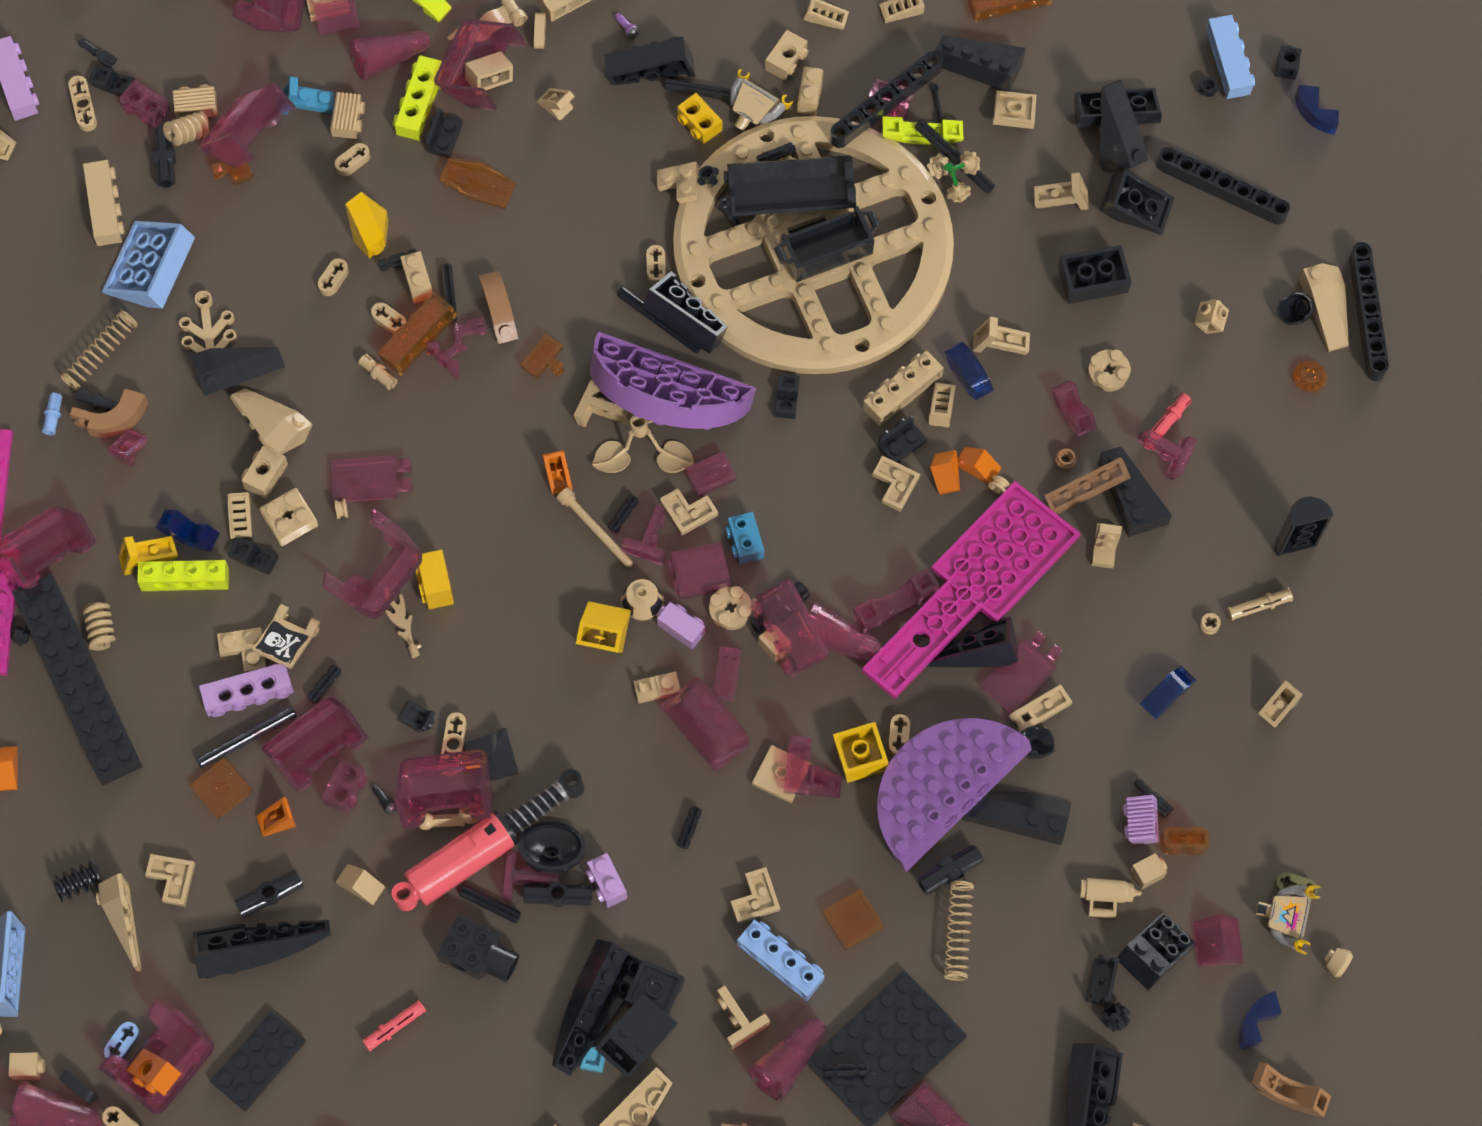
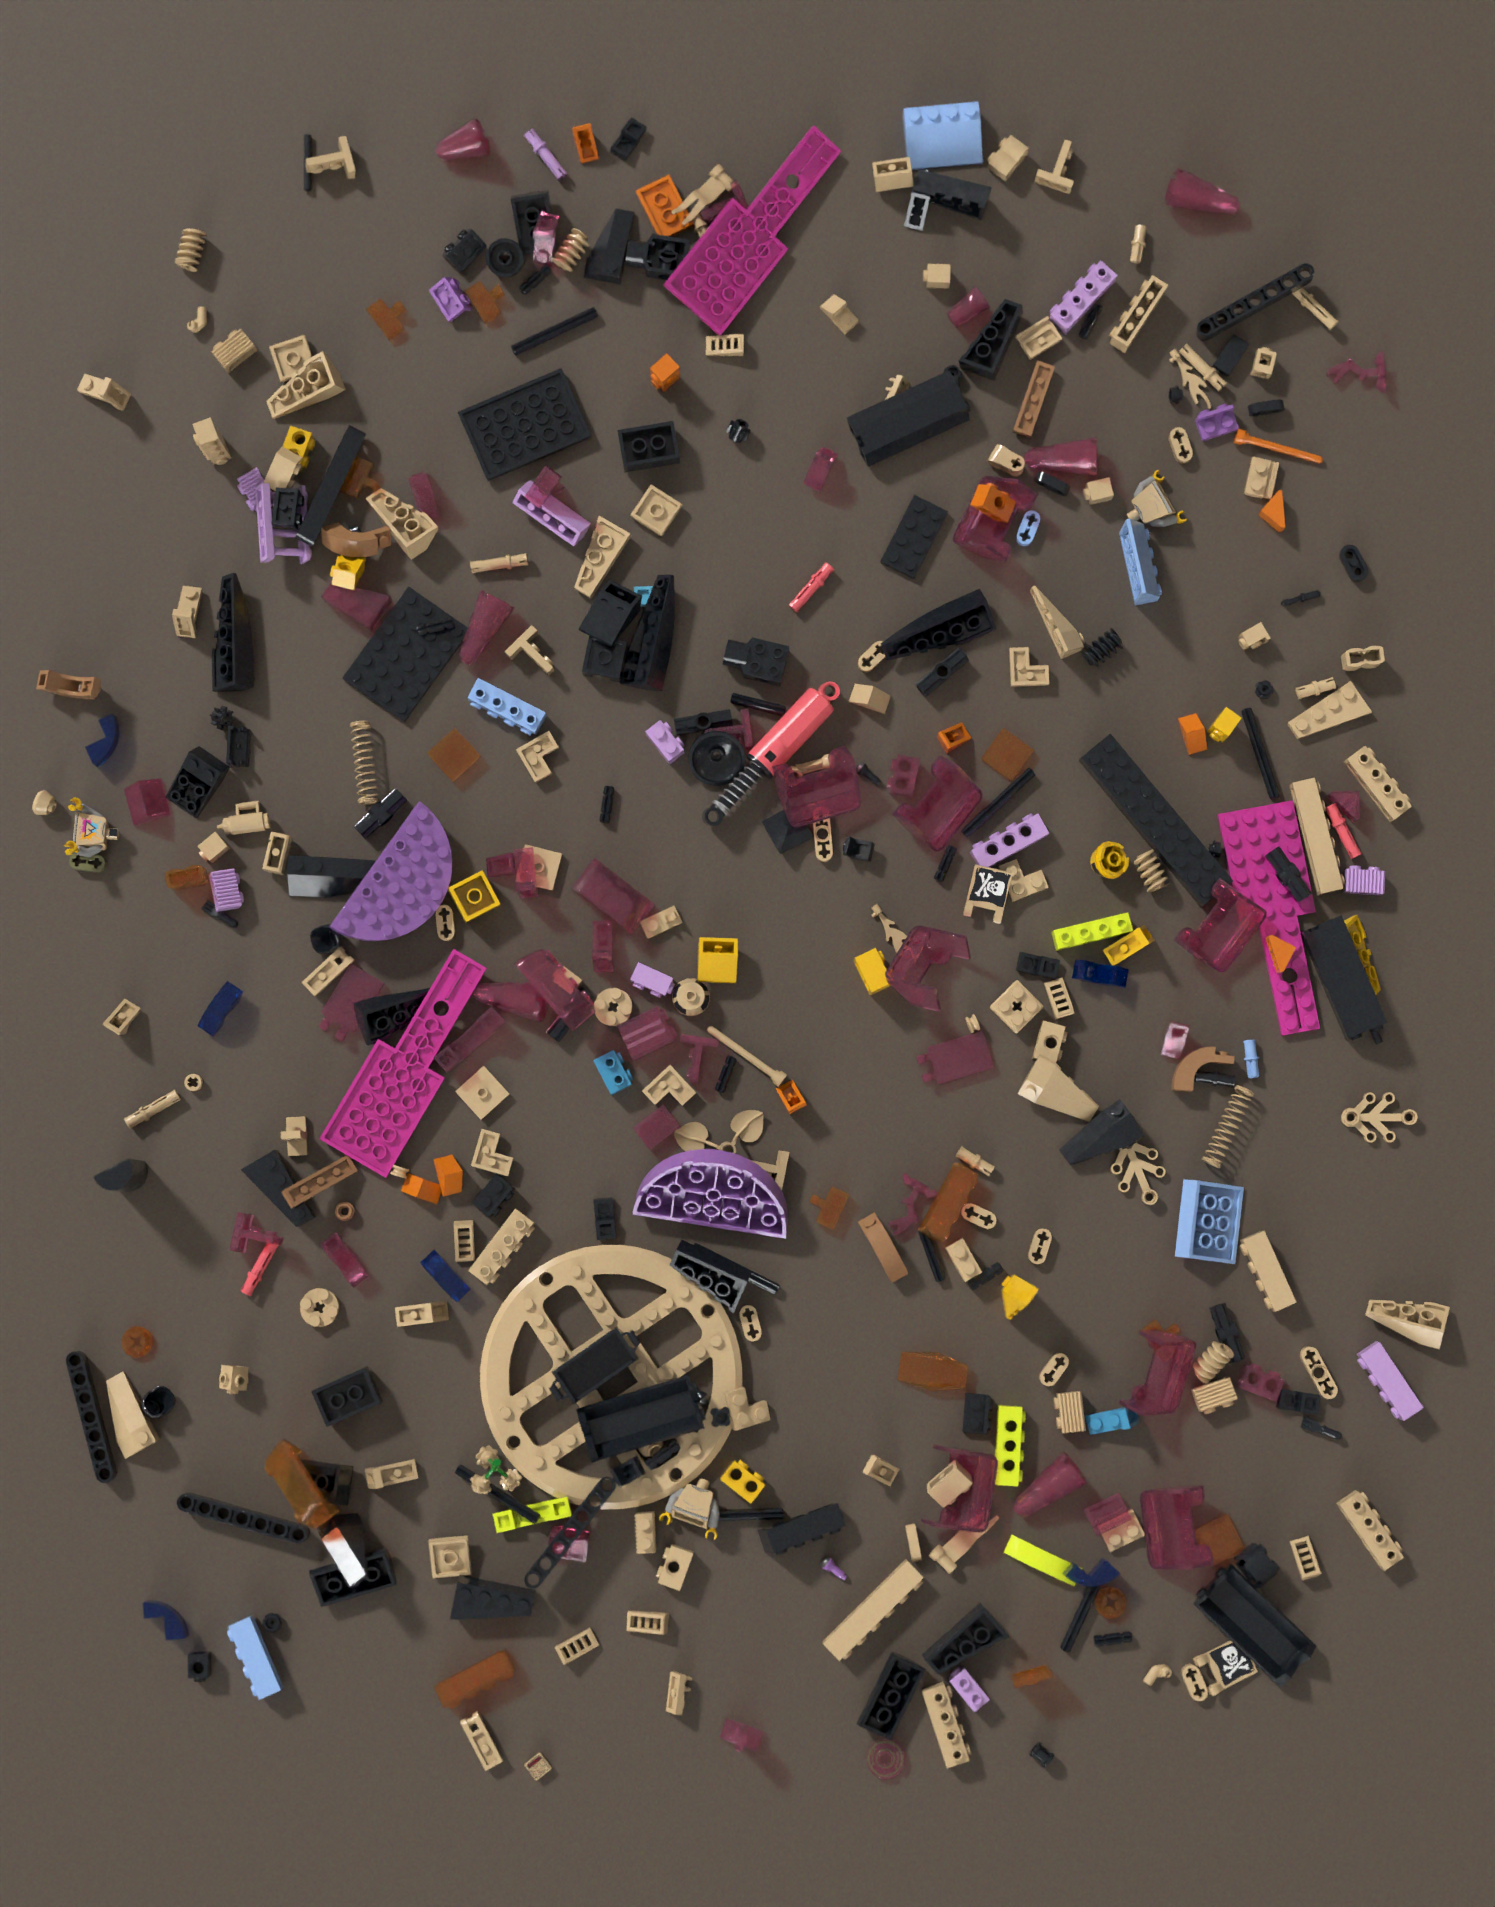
camera: 170 degrees right, 15 degrees up
(141, 643) = (1109, 860): none -> yellow cone
(346, 935) = (870, 653): none -> tan beam
(815, 142) = (628, 1471): none -> black bracket
(893, 548) = (482, 1092): none -> tan plate
(934, 89) = (518, 1534): black hinge -> none
(1076, 846) = (277, 853): none -> tan brick
(1161, 192) = (298, 1485): none -> clear orange windscreen

